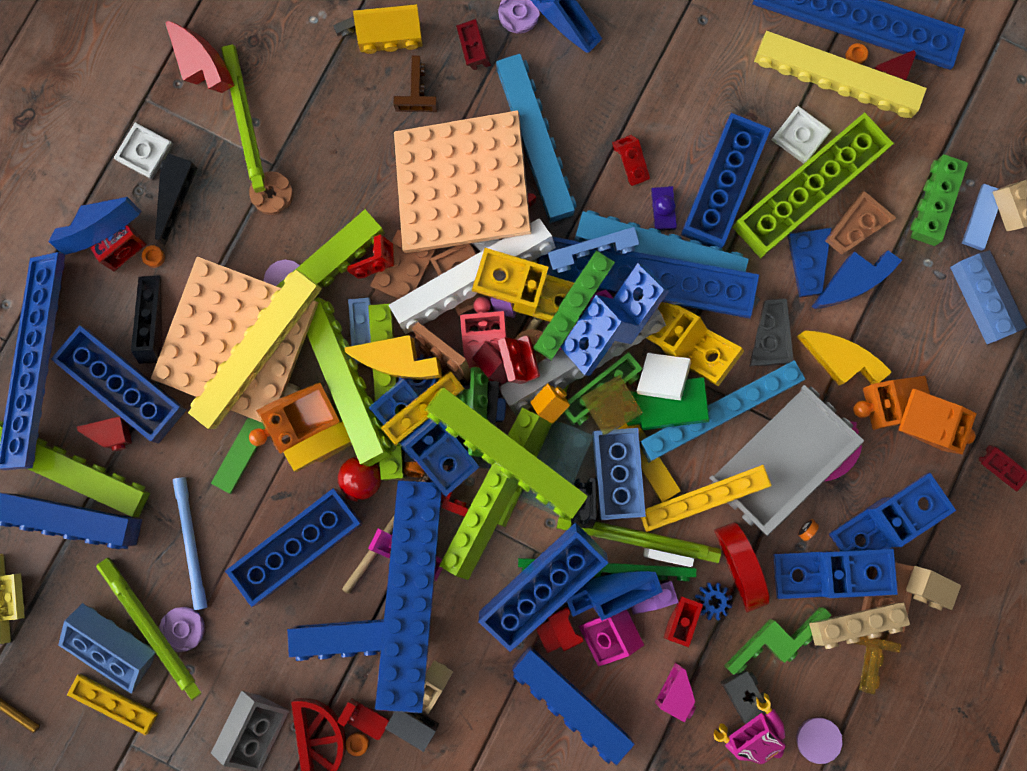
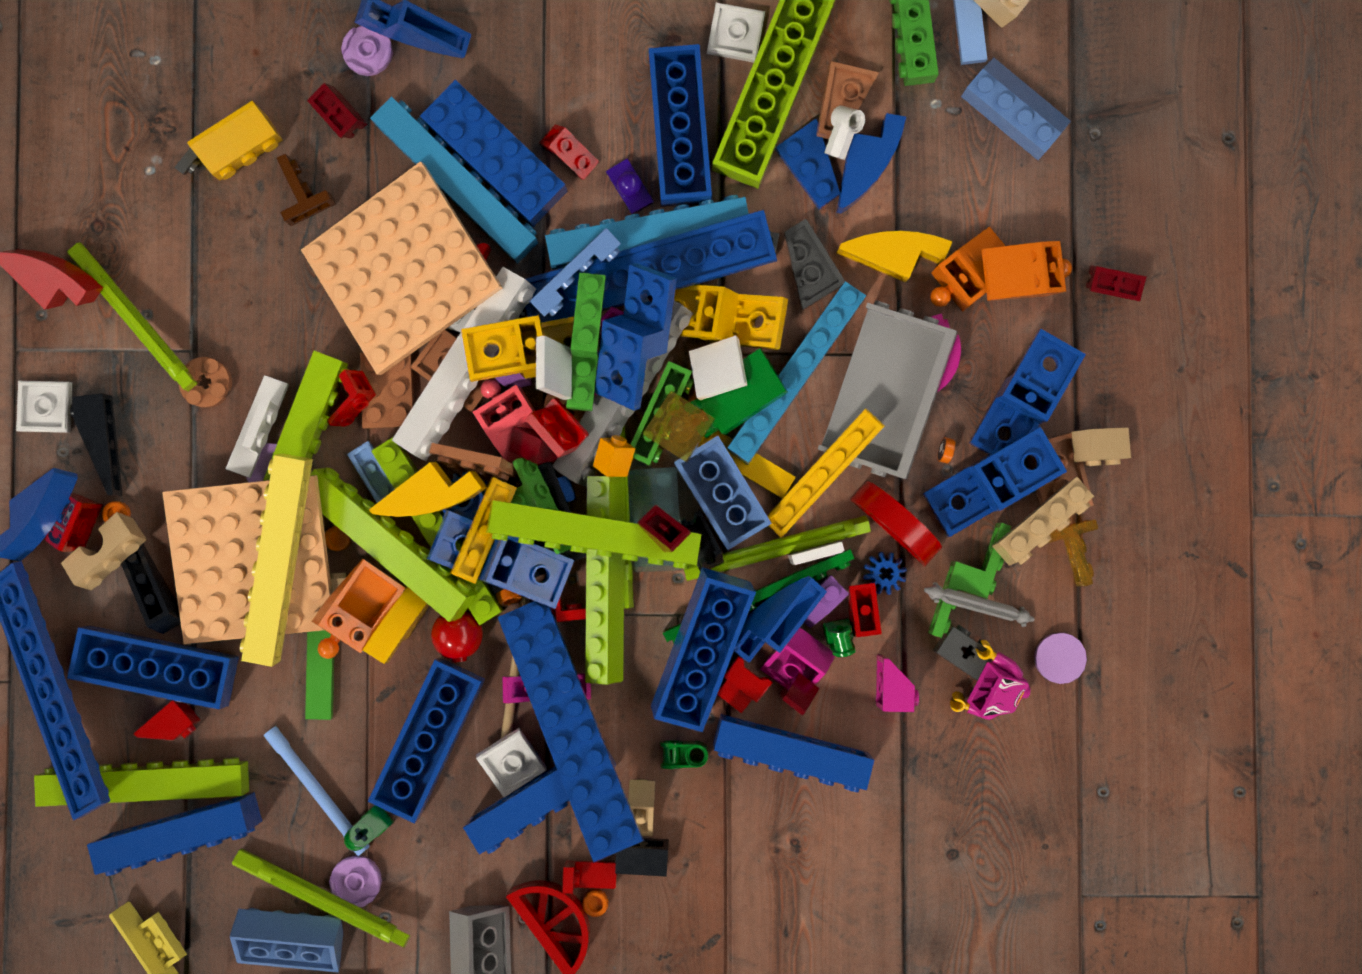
camera: 25 degrees left, 5 degrees up
(146, 276) = (120, 540): none -> tan arch
(216, 592) = (370, 826): none -> green piece
(292, 245) = (257, 426): none -> white bracket
(307, 359) = (336, 539): none -> orange tile
(349, 598) = (511, 762): none -> white tile
(484, 661) = (681, 754): none -> green piece
(540, 311) = (553, 368): none -> white tile
(561, 477) = (663, 529): none -> dark red slope
(575, 133) = (494, 153): none -> blue brick
(600, 661) = (799, 693): none -> dark red slope
(653, 633) = (839, 637): none -> green piece
(776, 664) = (979, 604): none -> light grey wheel
(852, 242) = (845, 123): none -> white piece

